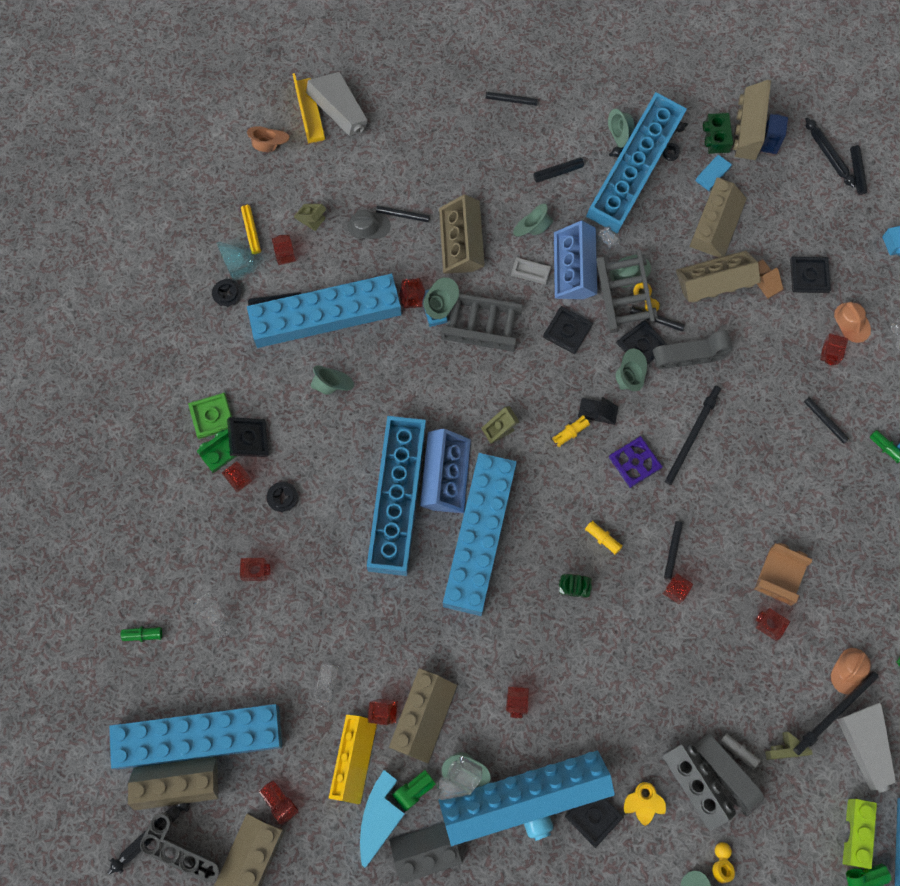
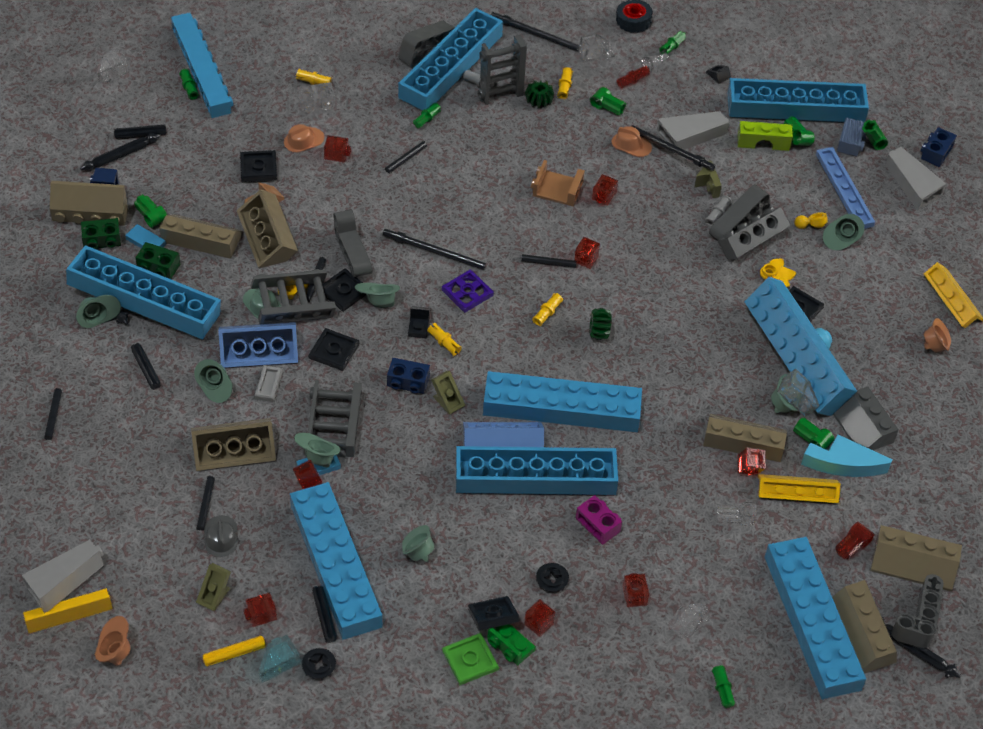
camera: 100 degrees left, 20 degrees down
(333, 543) = (596, 521): none -> magenta brick
(517, 702) = (715, 363): clear red brick -> none
(528, 392) = (408, 375): none -> dark blue brick
(609, 238) = (228, 317): clear bush -> none
(684, 181) = (158, 260): none -> dark green brick
(745, 177) = (152, 213): none -> green piece

